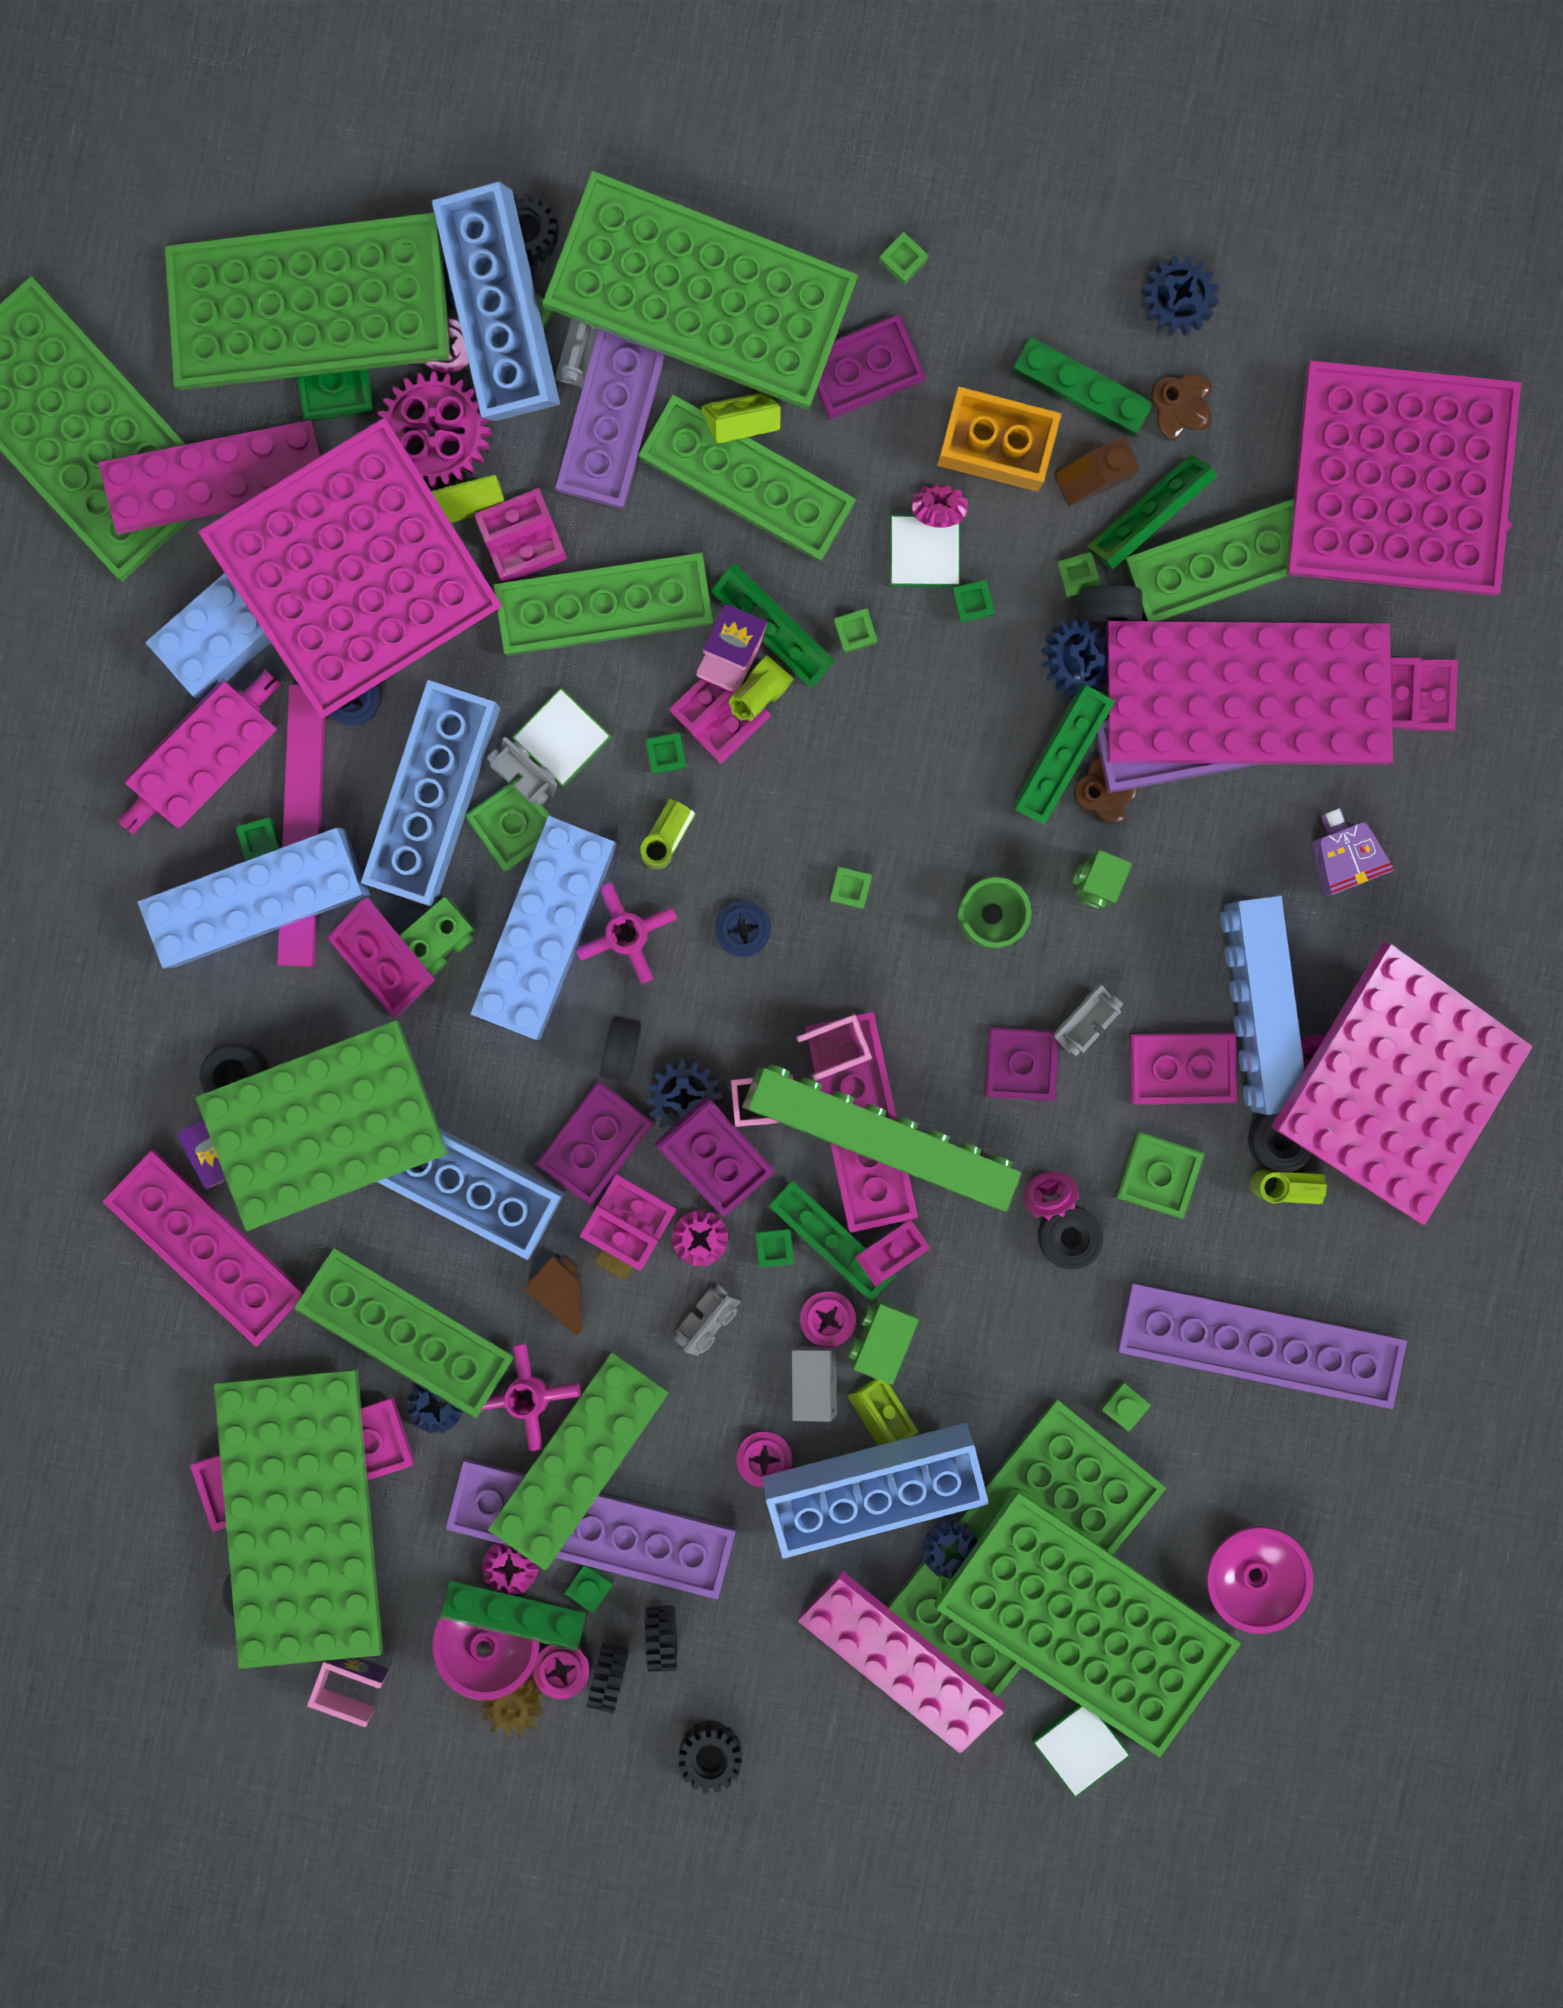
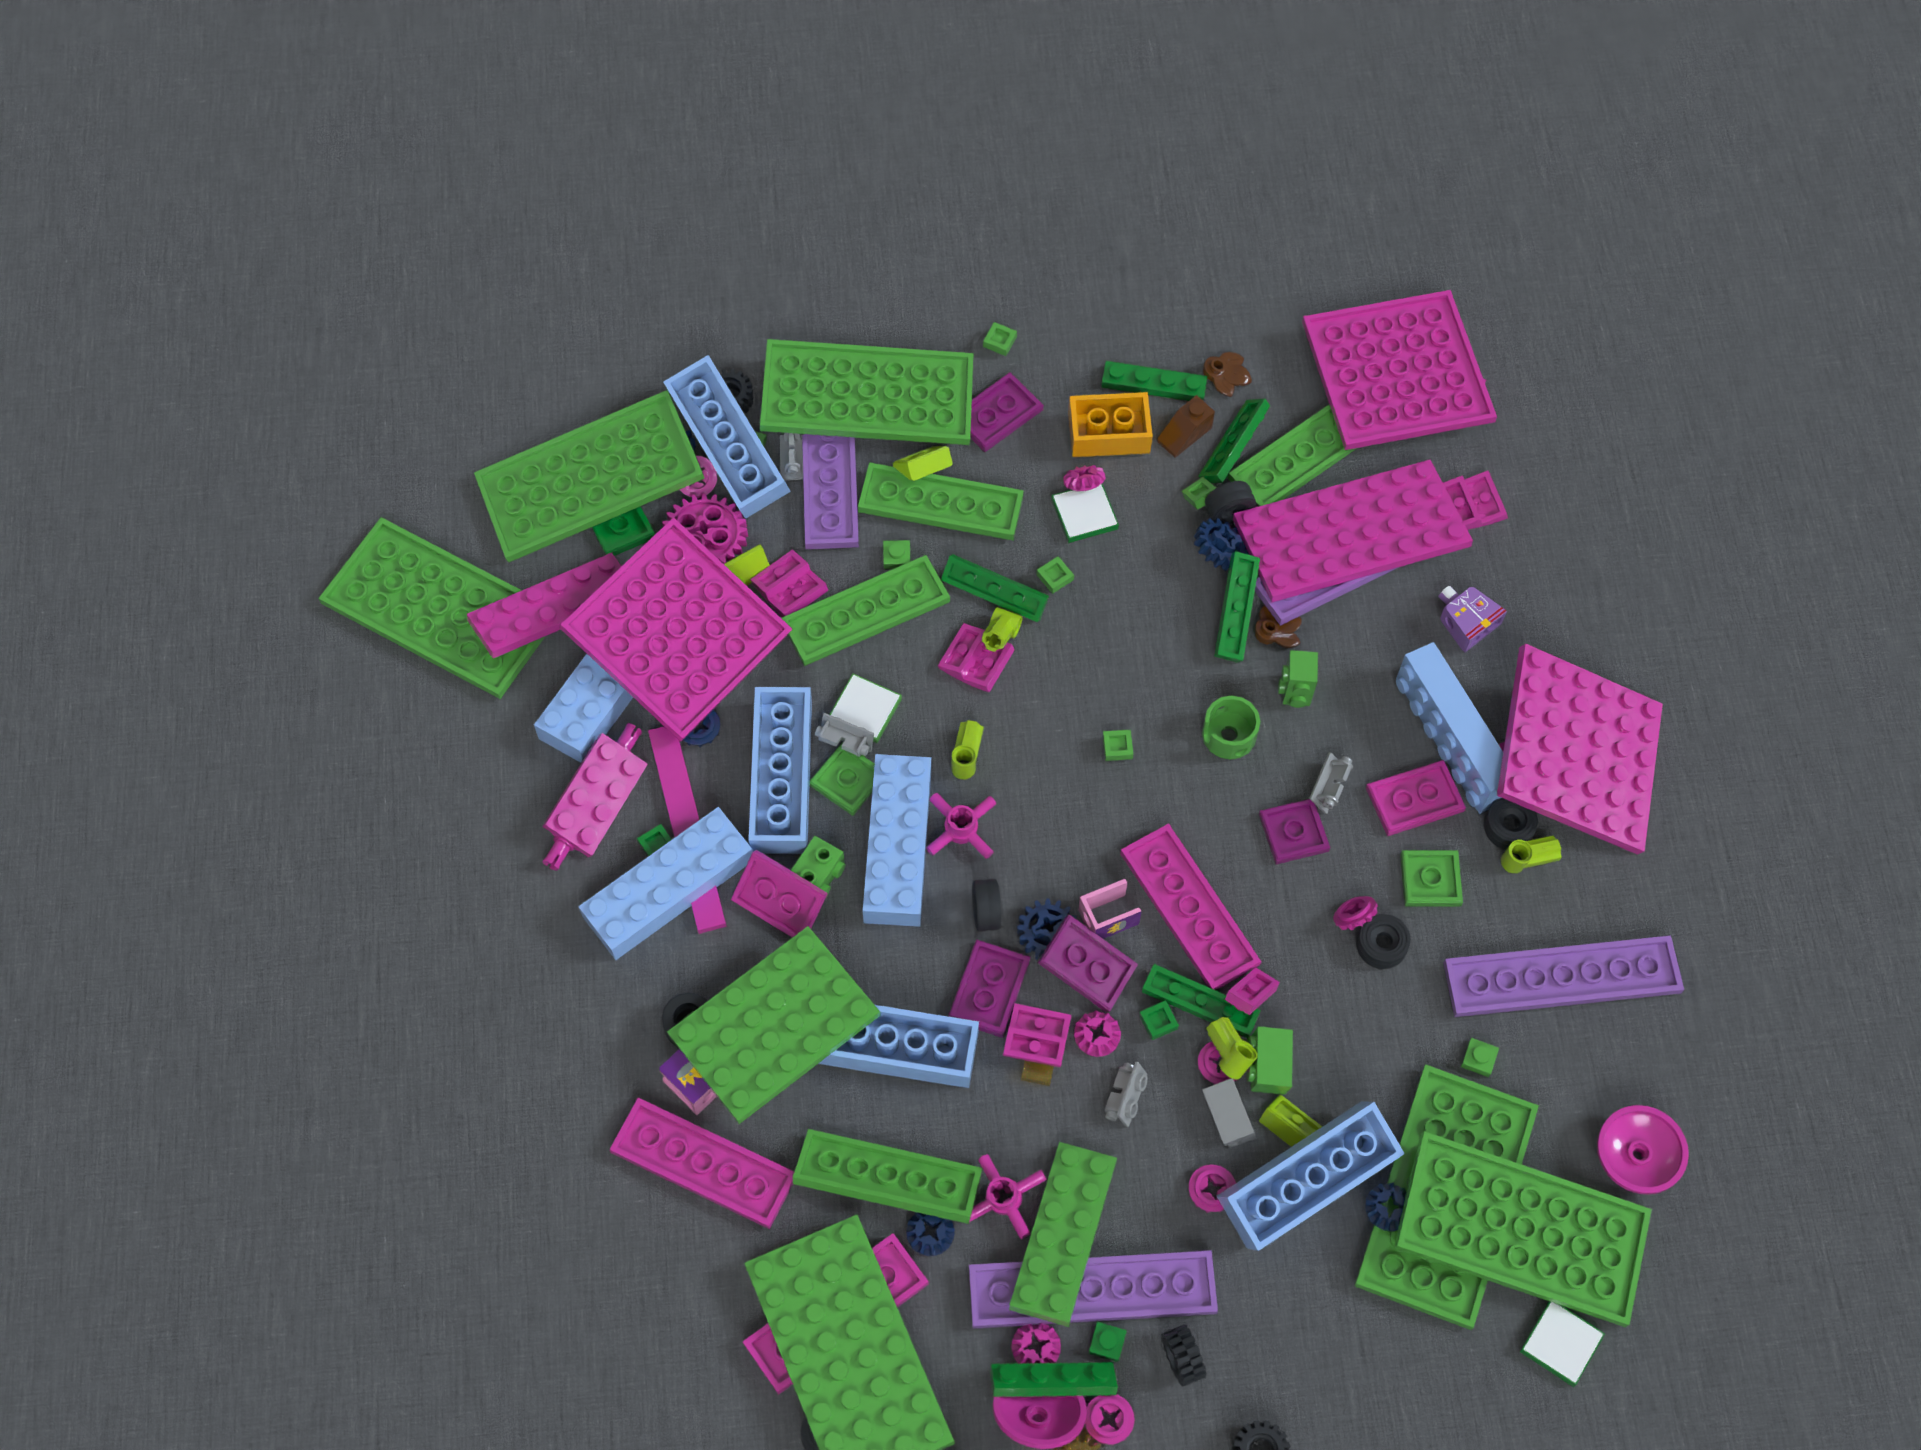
camera: 20 degrees left, 25 degrees down
(560, 1291) = (1001, 1105): reddish brown slope -> none
(608, 1678) = (1151, 1403): black tyre -> none
(666, 753) = (946, 695): green plate -> none
(668, 535) = (896, 553): none -> bright green plate
(729, 919) = (1050, 787): dark blue gear -> none
(731, 648) = (970, 606): piece -> none
(842, 1327) = (1235, 1053): none -> lime piece
(848, 1063) = (1157, 828): bright pink piece -> none
(880, 1138) = (1211, 904): bright green brick -> none
(901, 1662) = (1388, 1315): plate -> none
(973, 602) = (1132, 532): green plate -> none
(1166, 286) = (1209, 313): dark blue gear -> none

